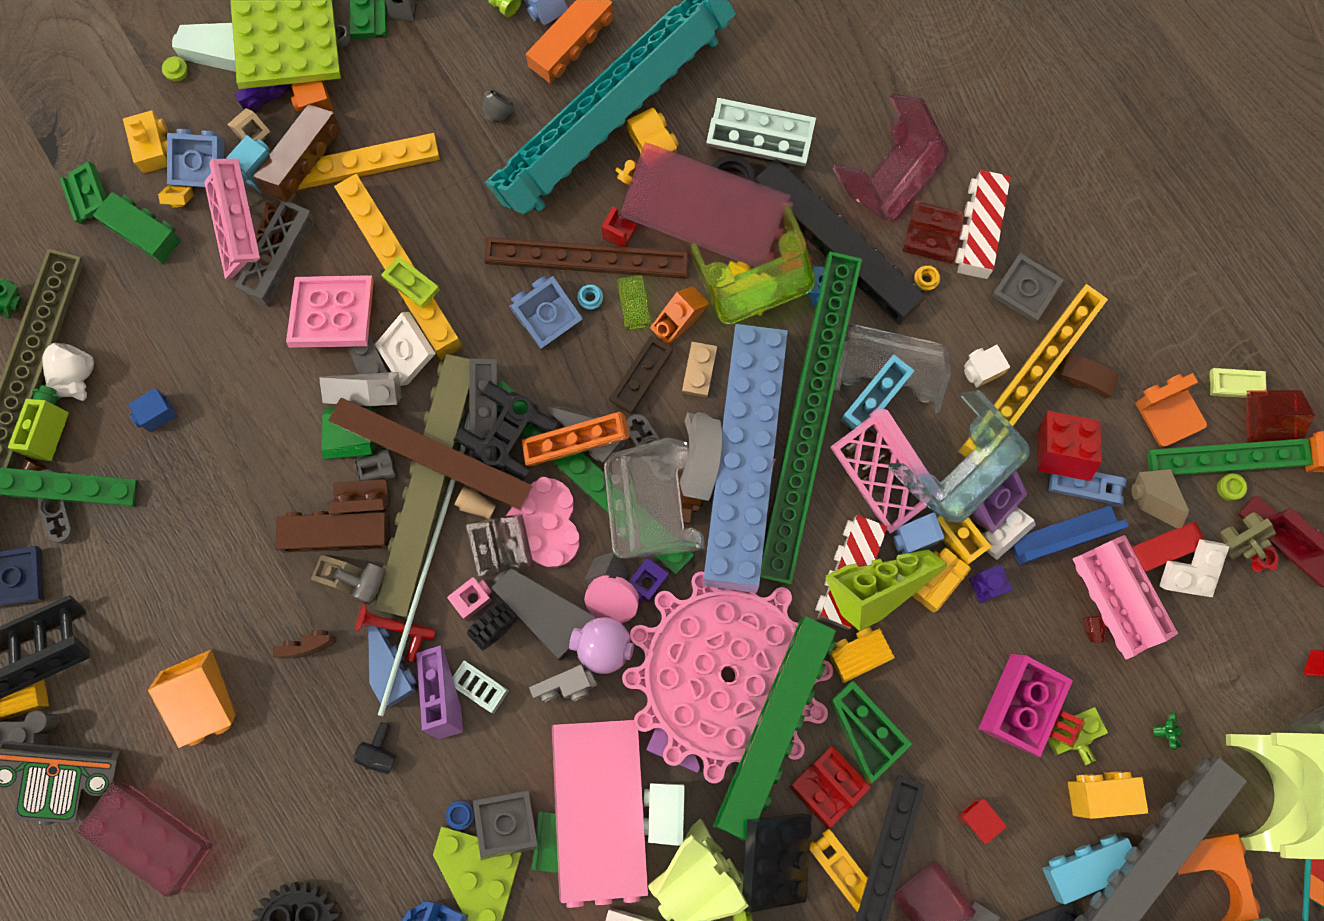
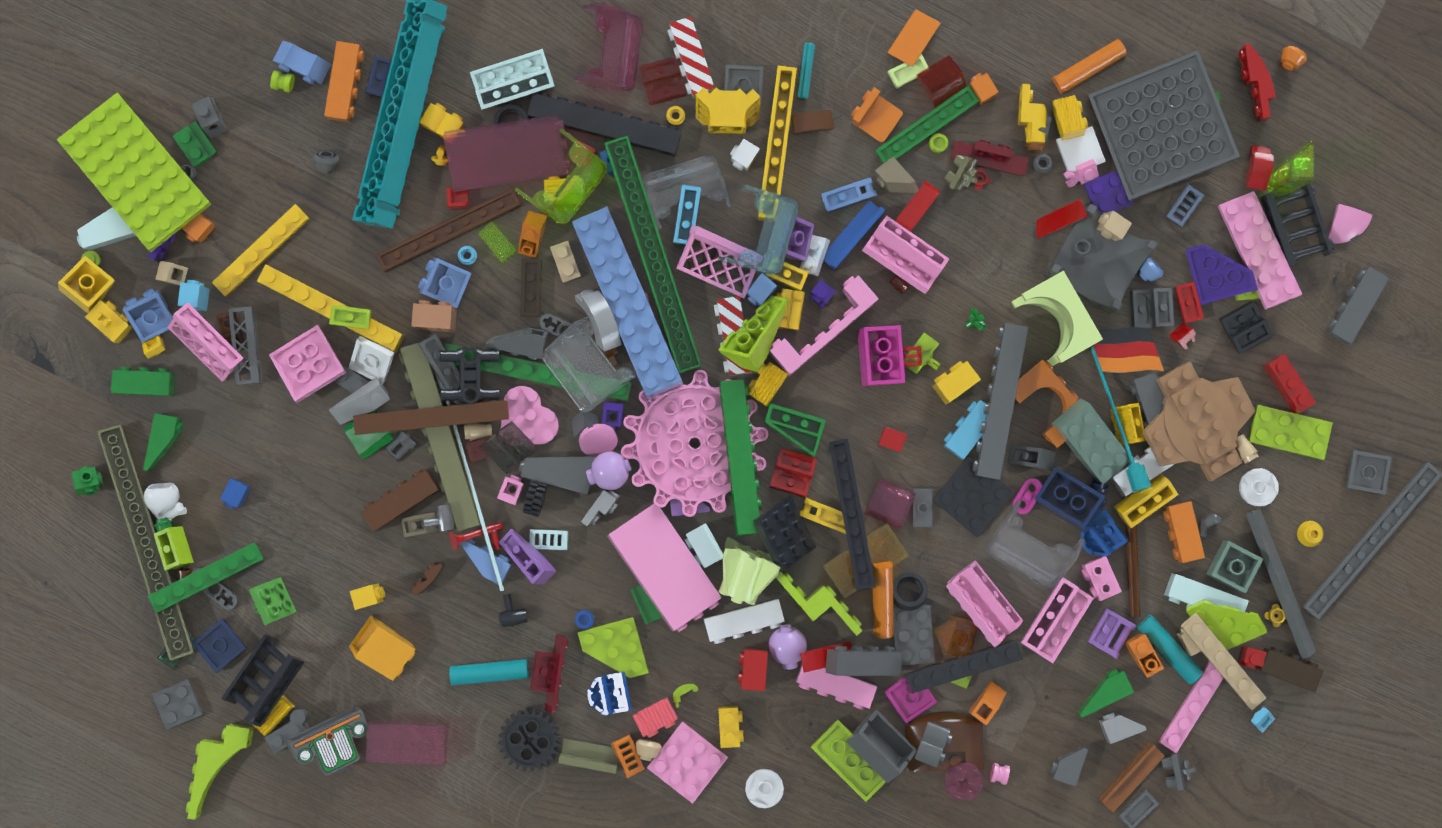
camera: 30 degrees left, 10 degrees up
(83, 191) = (90, 380): green plate -> none
(97, 556) = (269, 603): none -> bright green plate
(116, 298) = (163, 435): none -> green slope
(149, 86) = (86, 284): none -> yellow slope
(217, 622) = (367, 596): none -> yellow brick
(297, 153) = (217, 272): brick -> none
(302, 809) = (489, 672): none -> teal brick
(359, 496) = (403, 469): reddish brown bracket -> none
(373, 855) = (547, 672): none -> dark red bracket
(457, 527) = (475, 451): none -> clear red plate
(504, 824) = (614, 608): dark grey plate -> none
(507, 341) = (434, 317): none -> nougat brick
(575, 438) = (516, 355): orange brick -> none
(611, 50) = (378, 76): none -> dark blue plate
(995, 302) = (727, 110): none -> yellow slope
(1038, 616) = (859, 296): none -> bright pink plate
(1069, 446) = (823, 178): red brick -> none
(1111, 313) = (806, 69): none -> teal axle
(1200, 575) = (945, 214): white plate -> none
(1265, 348) = (914, 37): none -> orange sticker

